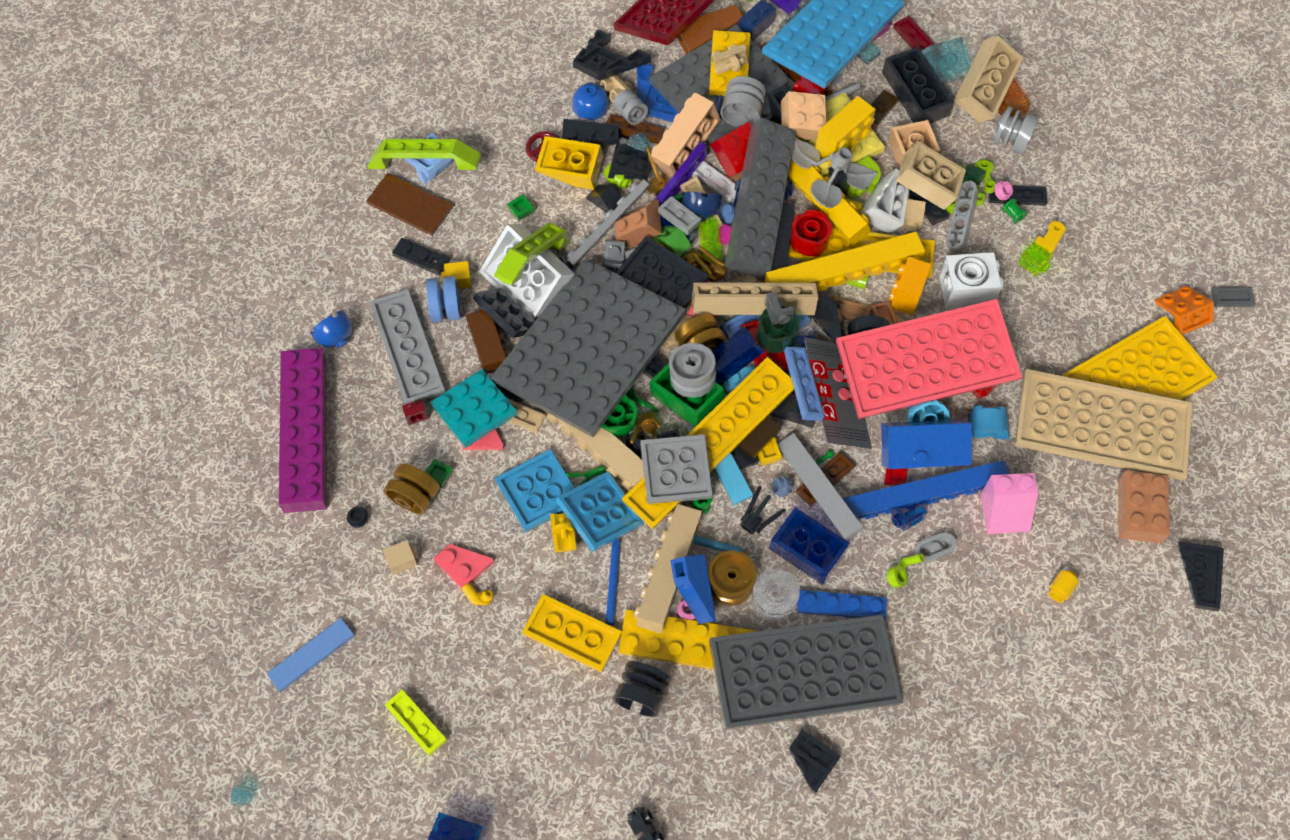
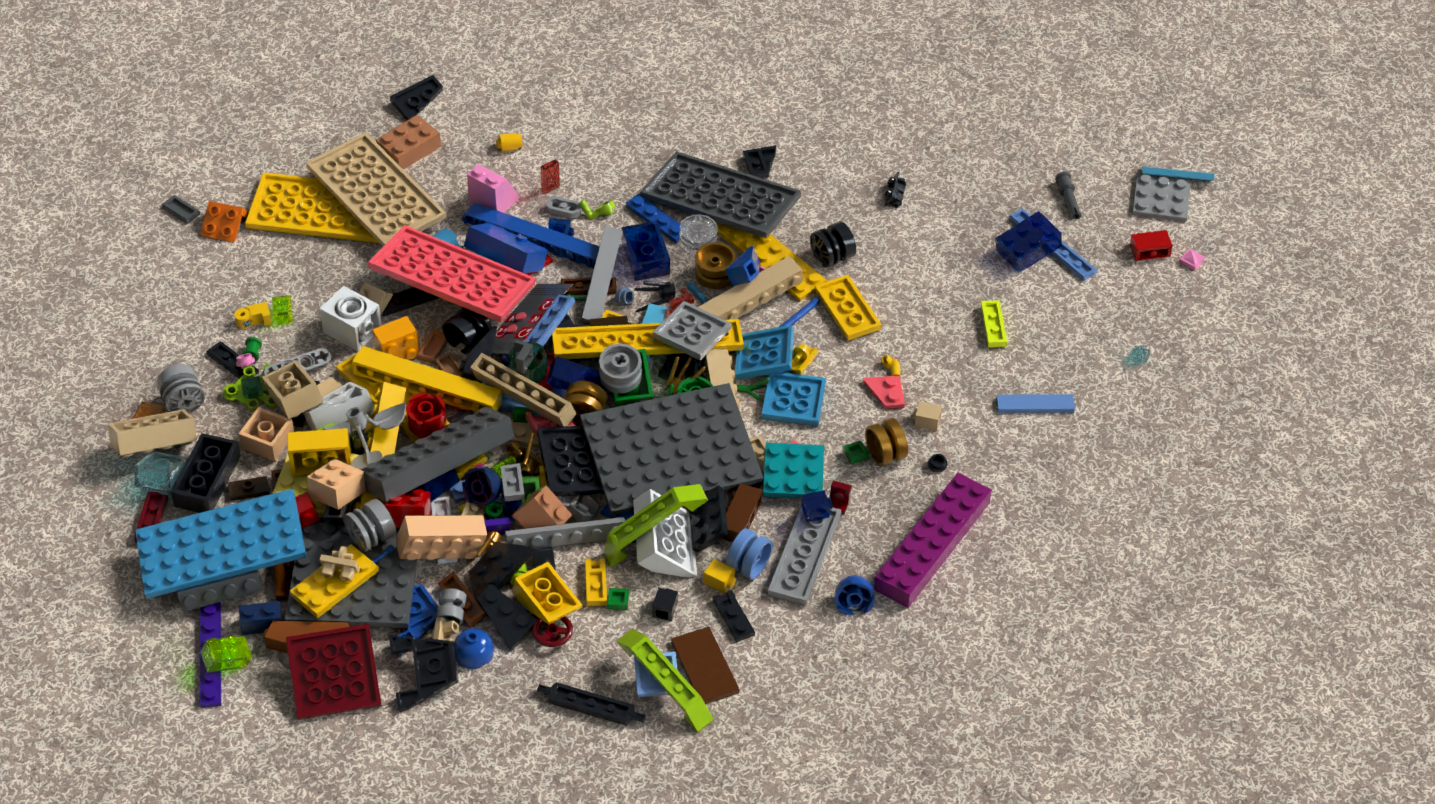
camera: 140 degrees left, 15 degrees down
(423, 380) = (816, 506): none -> clear blue brick
(467, 119) = (591, 703): none -> black plate
(479, 224) = (665, 604): none -> black brick
(550, 208) = (596, 582): none -> yellow plate
(638, 141) = (473, 579): clear light blue plate -> none
(723, 516) = (685, 296): none -> clear red bracket
(977, 560) = (550, 176): none -> clear red tile

